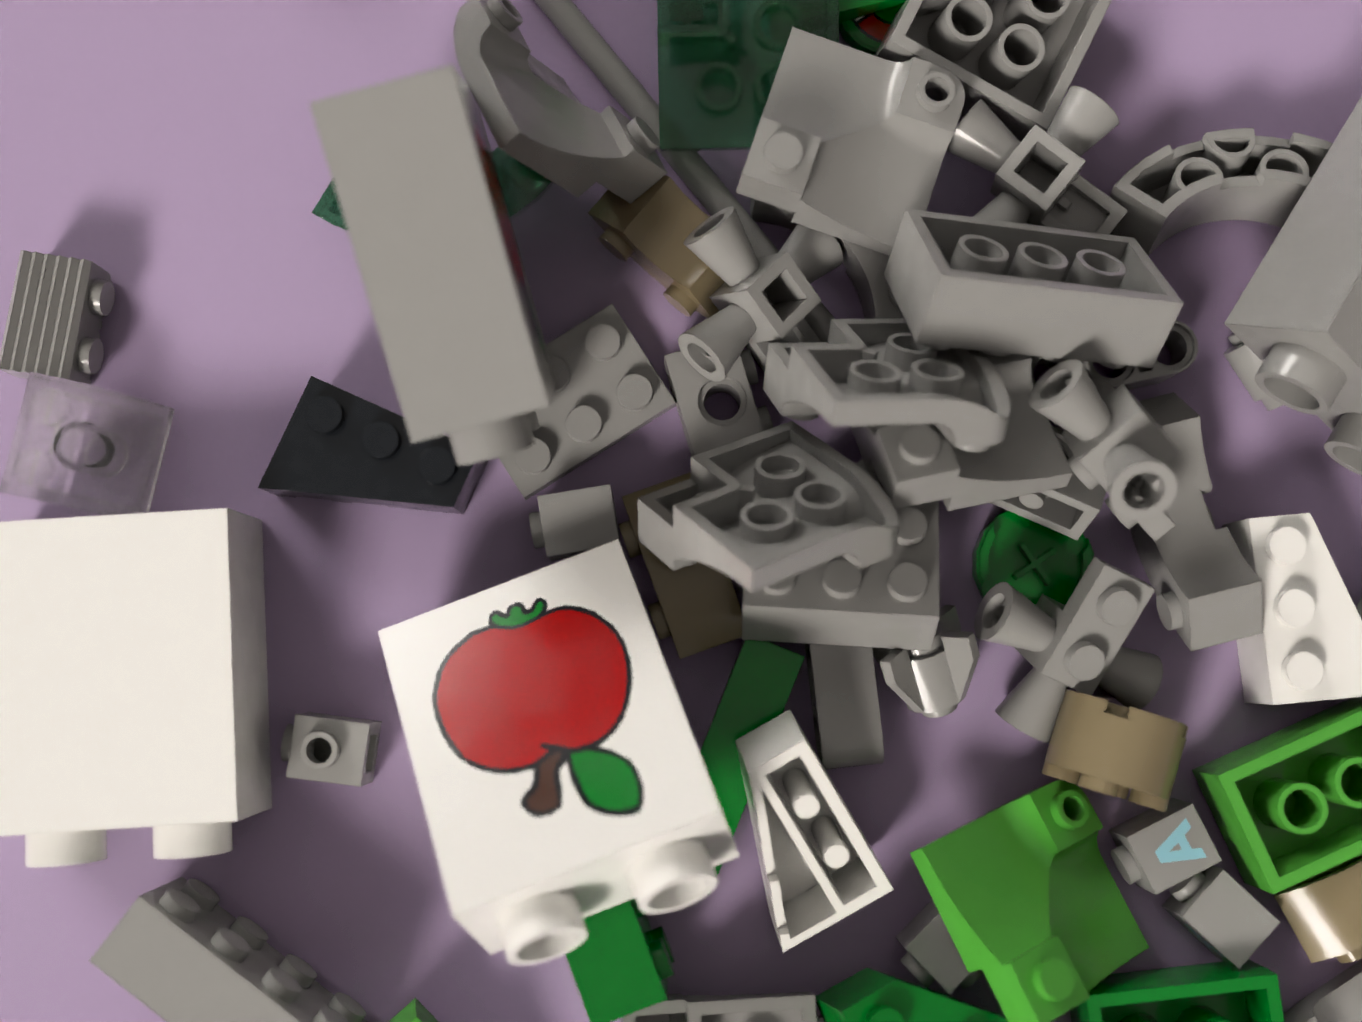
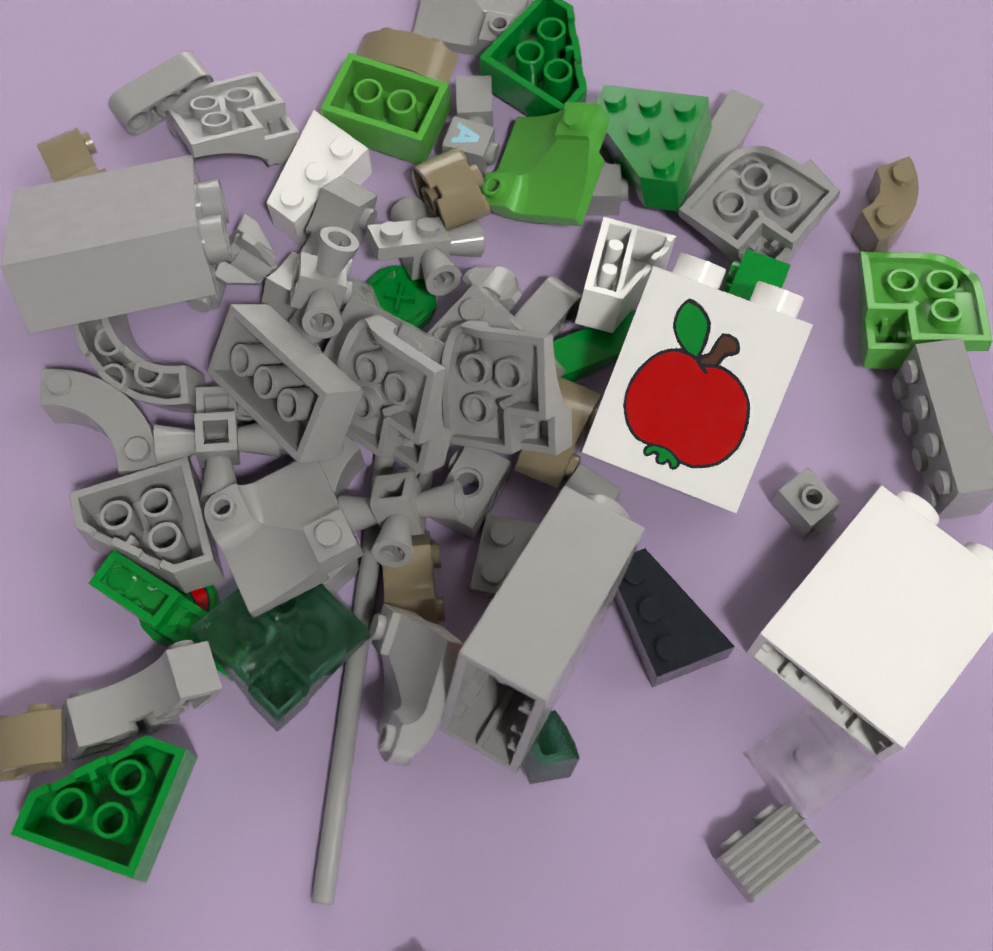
camera: 130 degrees left, 15 degrees down
(1180, 109) = (100, 406): none -> light grey brick
(1258, 437) = (251, 255): none -> light grey brick

